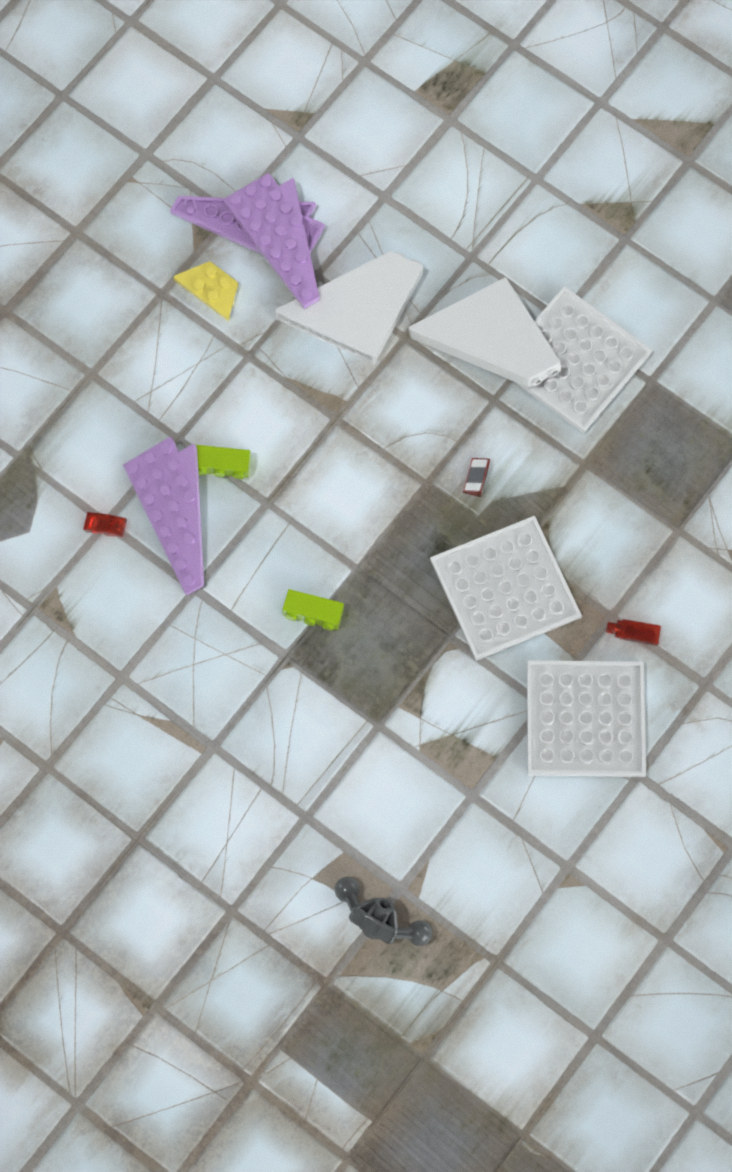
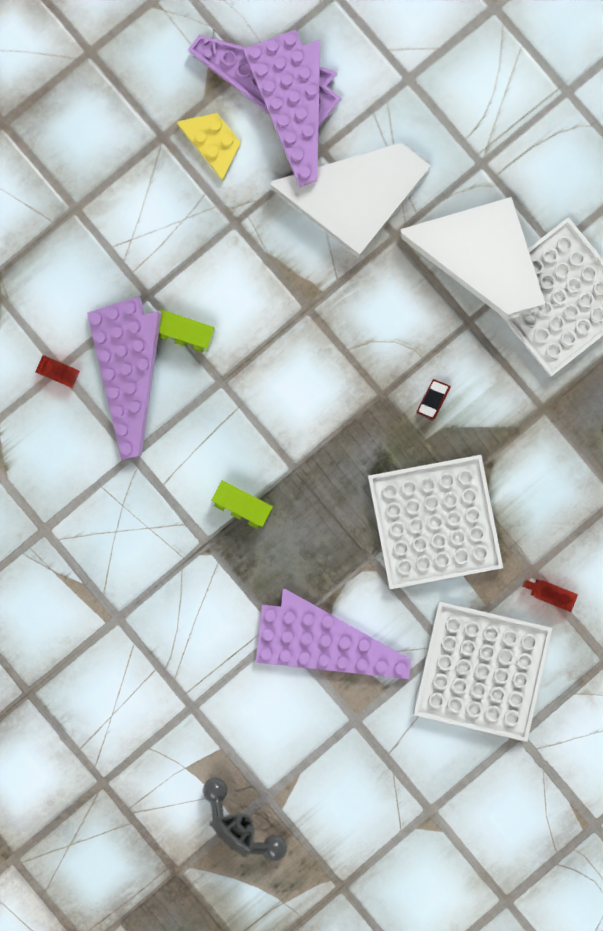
camera: 15 degrees right, 15 degrees up
(414, 724) = (314, 639): none -> lavender wing

